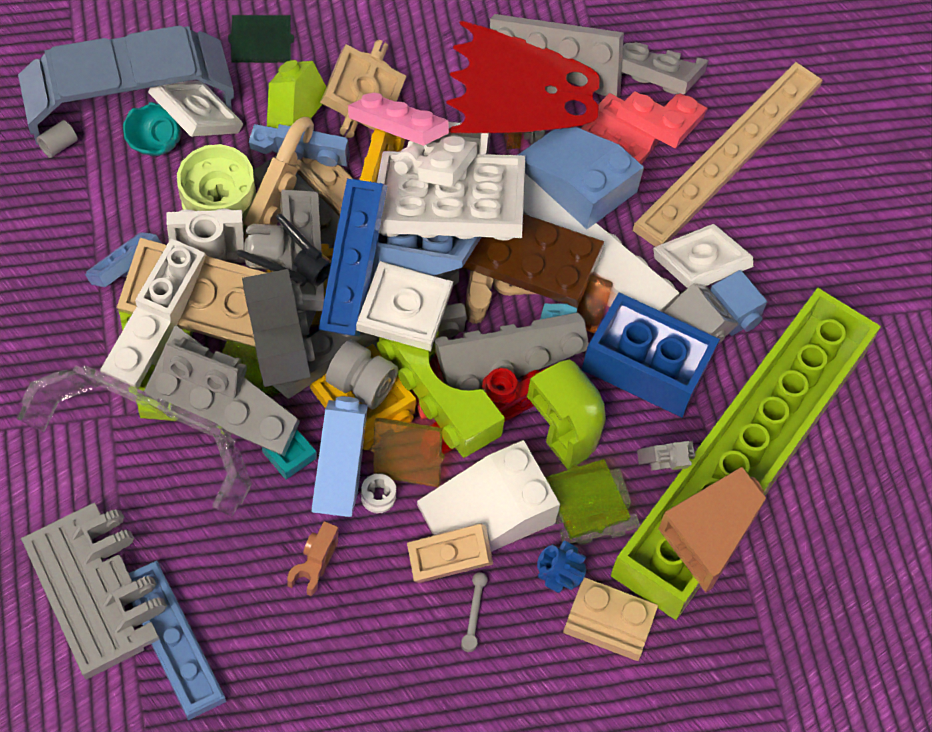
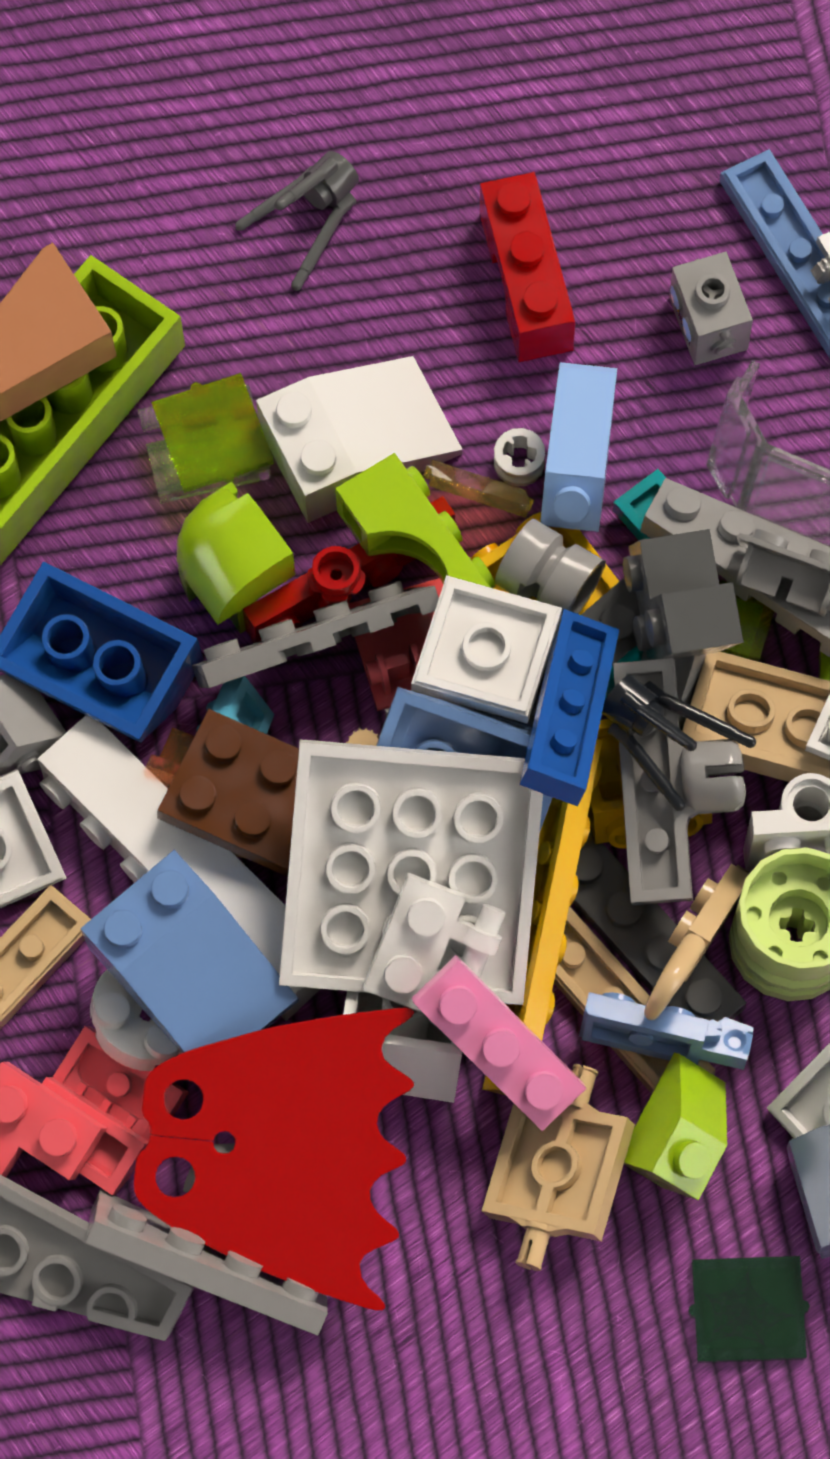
camera: 170 degrees left, 10 degrees up
(242, 583) = (710, 308): none -> light grey head
(319, 551) = (611, 336): nougat plate -> none
(373, 617) = (529, 266): none -> red arch
(450, 553) = (416, 351): tan plate -> none
(469, 641) = (389, 258): light grey hinge -> none
(516, 689) = (322, 185): none -> dark grey plant
(561, 566) = (256, 338): blue gear -> none
(610, 619) = (195, 284): tan plate -> none
(667, 456) = (88, 476): light grey hinge -> none

